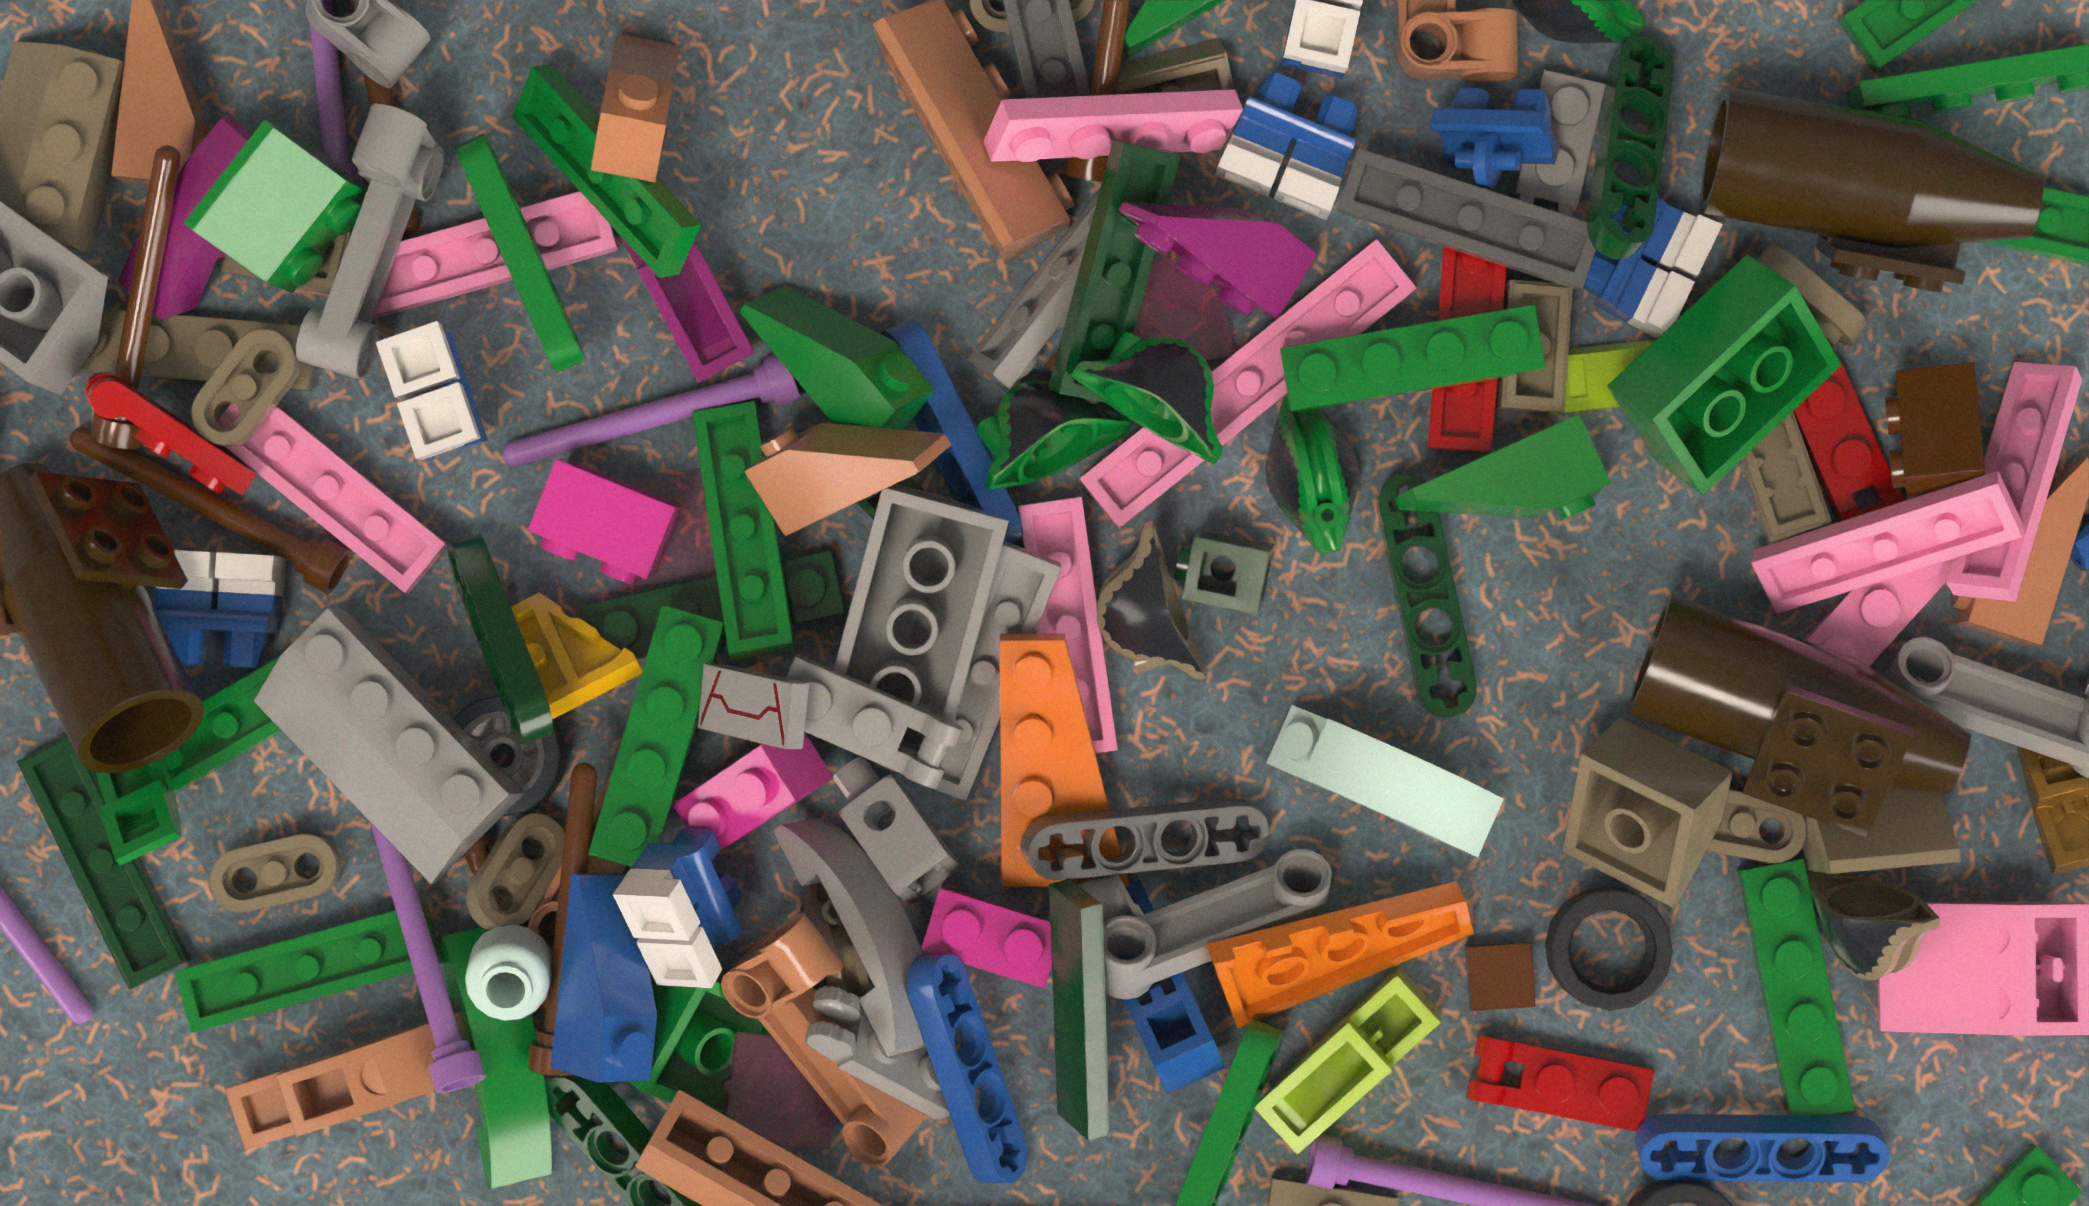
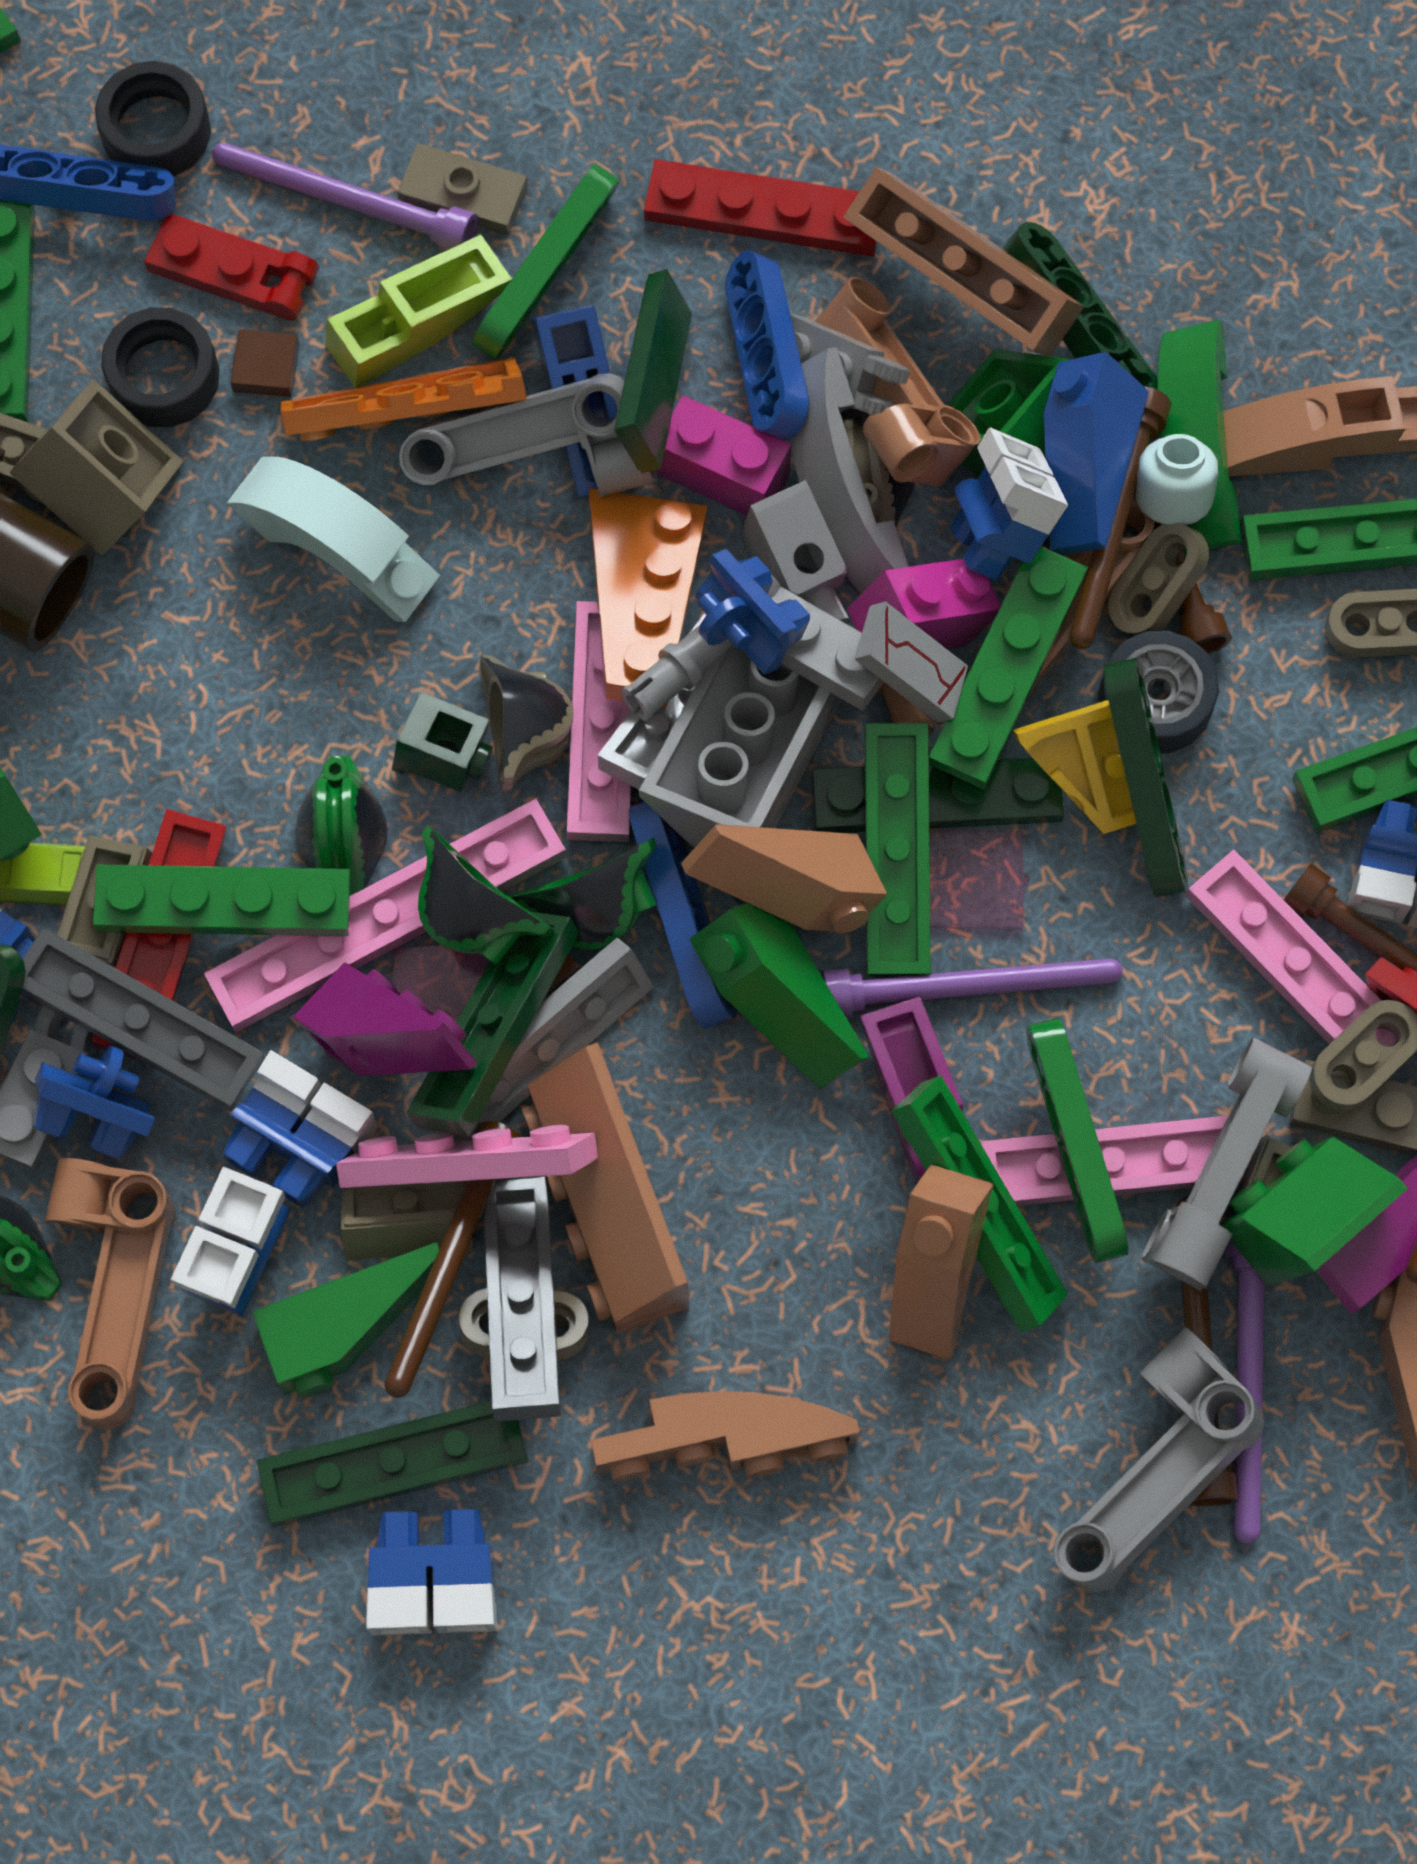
camera: 170 degrees left, 15 degrees down
(386, 743) = (1263, 703): light grey slope -> none
(433, 391) = (1180, 1015): white hips -> none
(453, 1060) = (1238, 413): medium lavender piece -> none
(604, 520) = (1029, 886): dark pink brick -> none
(774, 1096) = (952, 356): clear pink piece -> none
(930, 712) = (744, 613): none -> blue hips
(990, 664) = (676, 669): none -> light grey pin
(1145, 845) = (482, 512): dark grey beam -> none
(1417, 597) = (254, 699): dark green beam -> none
(1524, 479) = (134, 780): green slope -> none

